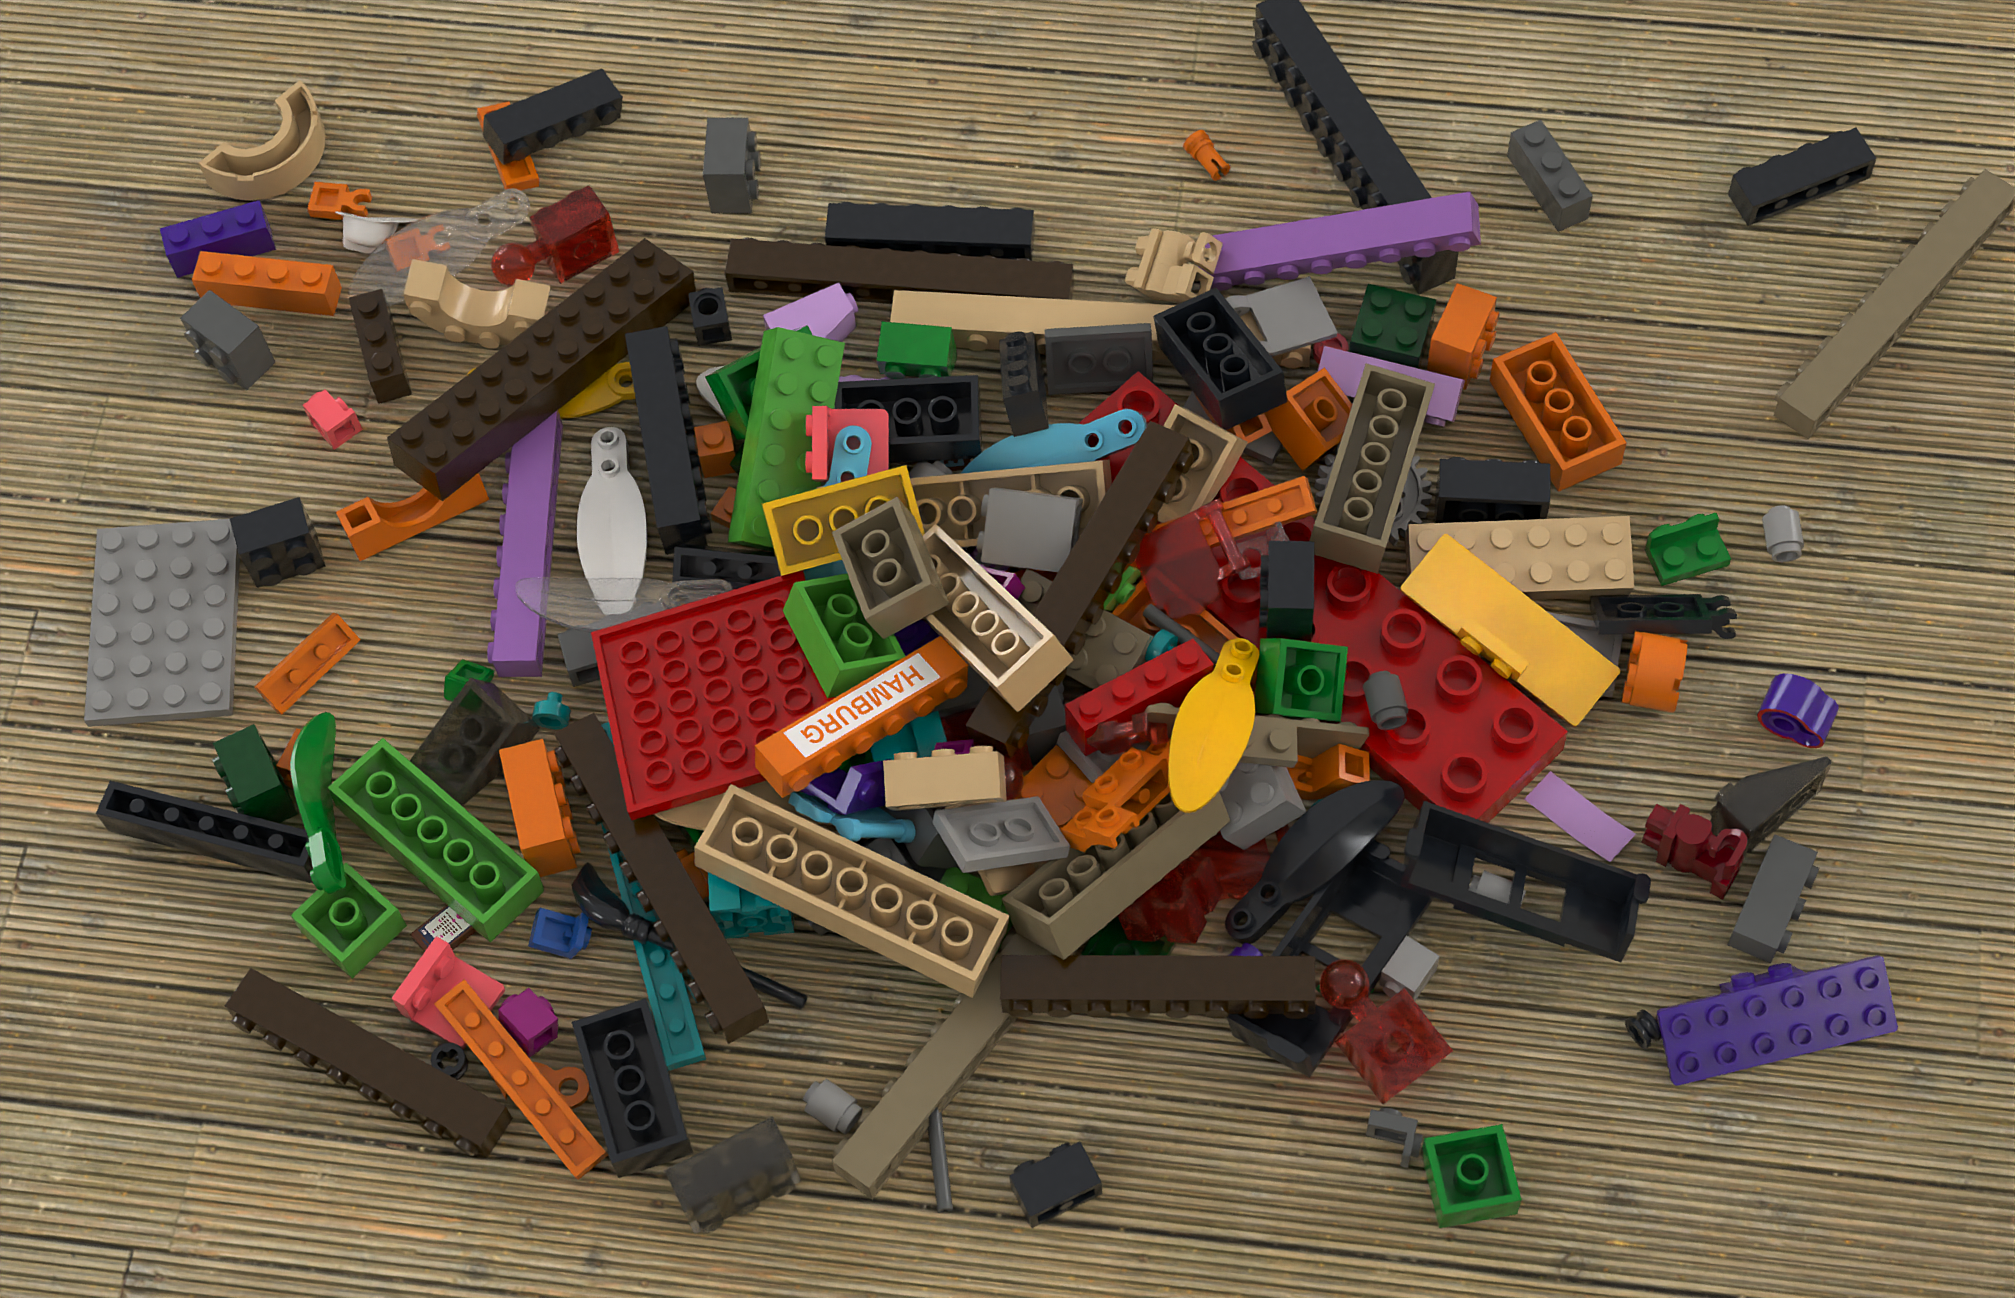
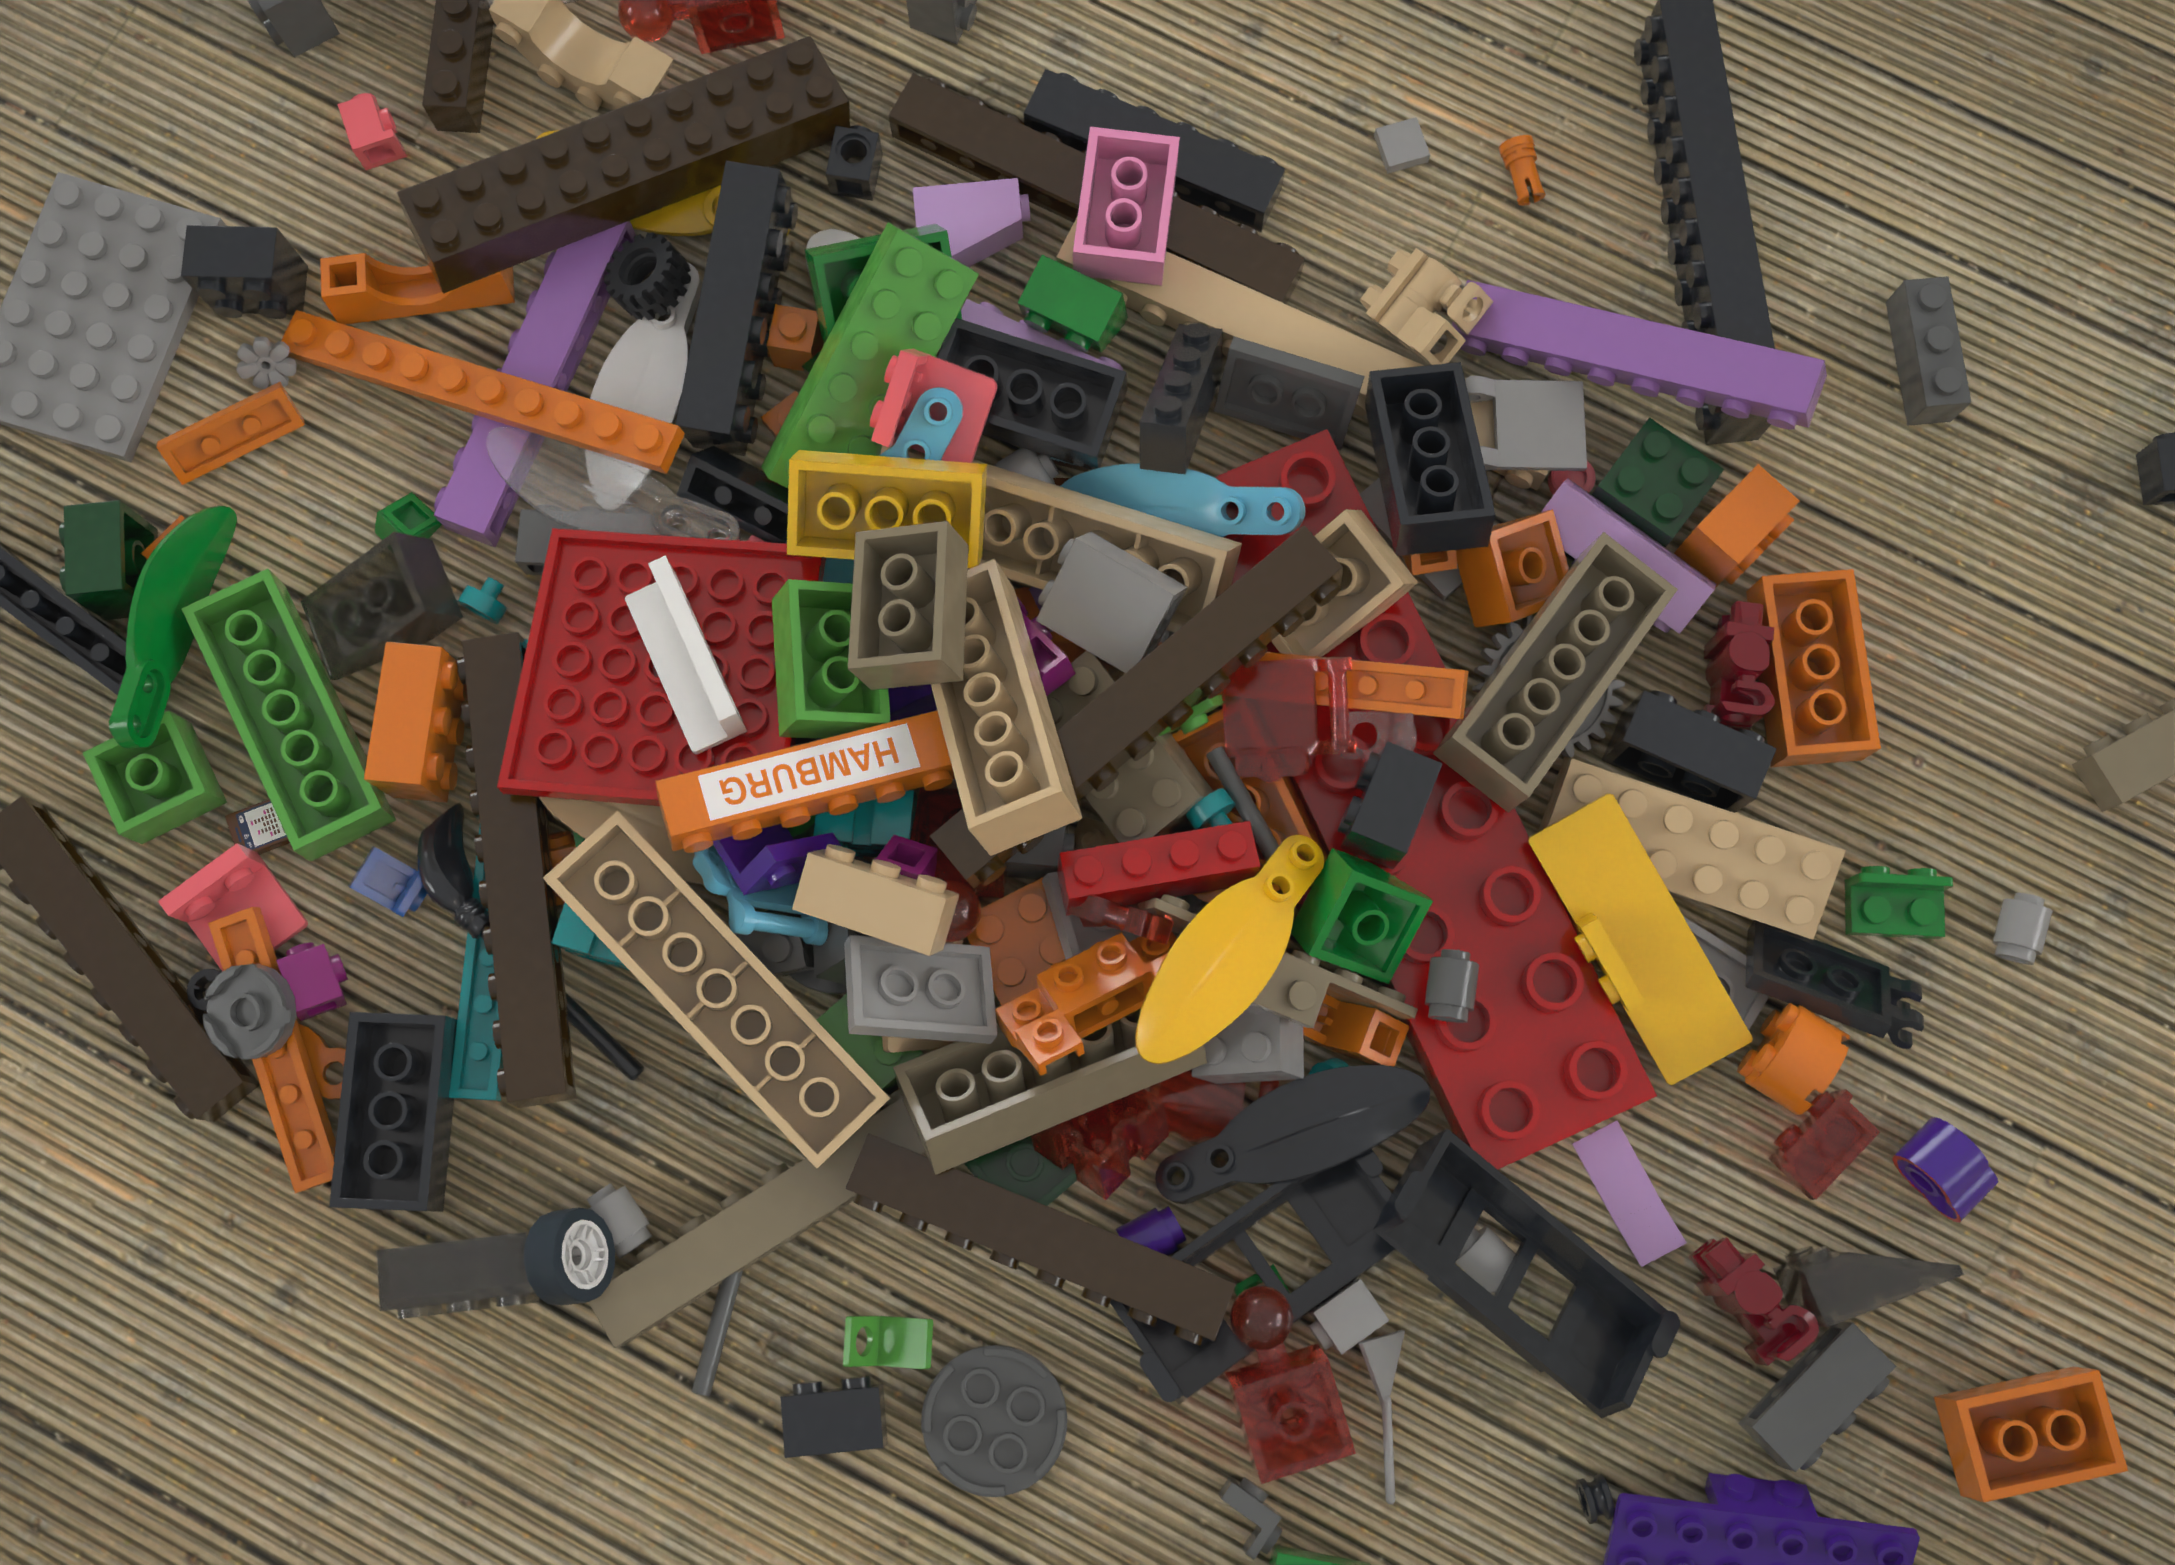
camera: 15 degrees right, 15 degrees up
(315, 604) = (265, 362): none -> light grey plant
(492, 1053) = (249, 1011): none -> dark grey tile
(493, 562) = (484, 392): none -> orange plate
(578, 432) = (660, 288): none -> black tyre
(734, 675) = (684, 660): none -> white panel
(810, 1128) = (569, 1256): none -> black wheel
(929, 269) = (1125, 205): none -> bright pink brick
(1076, 1114) = (890, 1342): none -> bright green bracket
(1111, 169) = (1401, 145): none -> light grey tile
(1176, 1145) = (994, 1420): none -> dark grey tile
(1447, 990) = (1381, 1359): none -> light grey piece
(1500, 423) = (1738, 658): none -> dark red hips
(1704, 727) = (1823, 1143): none -> clear red bracket
(1933, 864) = (2030, 1434): none -> orange brick

